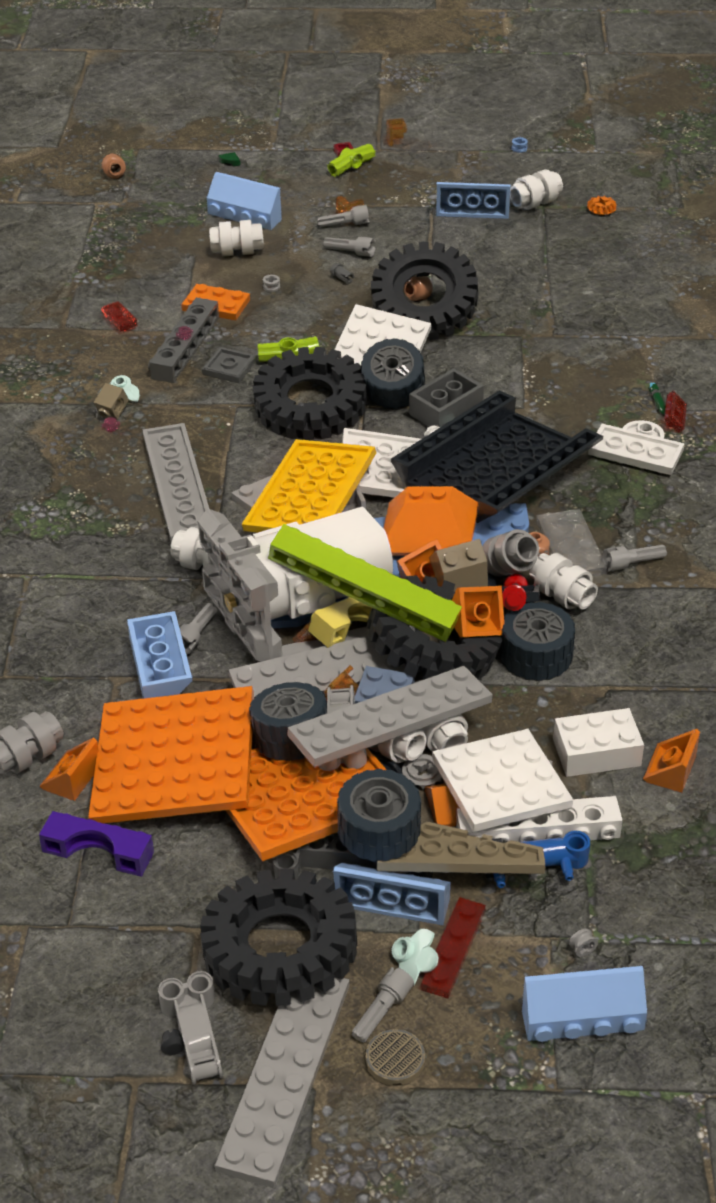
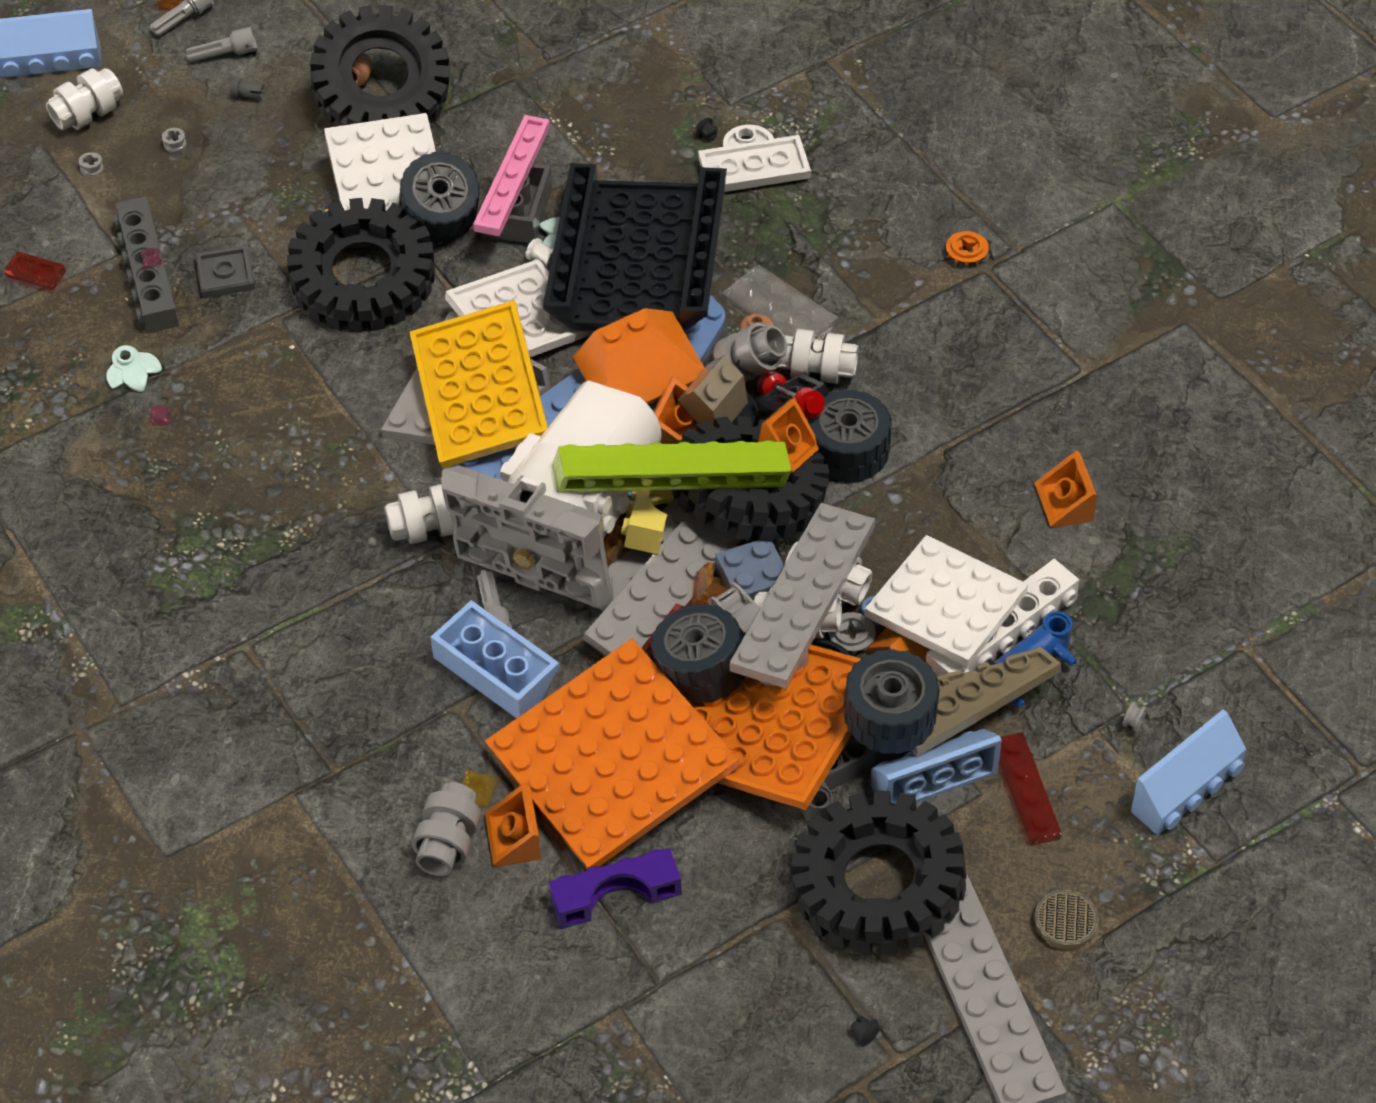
camera: 35 degrees left, 10 degrees up
(78, 732) = (482, 785): none -> clear yellow slope
(111, 401) = (141, 387): dark tan brick -> none
(175, 476) = (310, 447): light grey plate -> none
(193, 1021) = (872, 999): light grey piece -> none
(210, 276) = (90, 170): none -> light grey bush
(230, 302) = (117, 189): orange plate -> none
(269, 350) = (280, 220): lime piece -> none
(391, 991) = (1015, 862): light grey piece -> none
(415, 953) = (1012, 816): light aqua plate -> none
(448, 378) = (511, 175): none -> bright pink plate
(598, 742) = (987, 512): white brick -> none
(620, 558) = (844, 299): light grey piece -> none
(622, 414) = (706, 129): none -> black piece
(654, 390) = (724, 91): dark green piece -> none
(675, 411) = (756, 97): clear red plate -> none

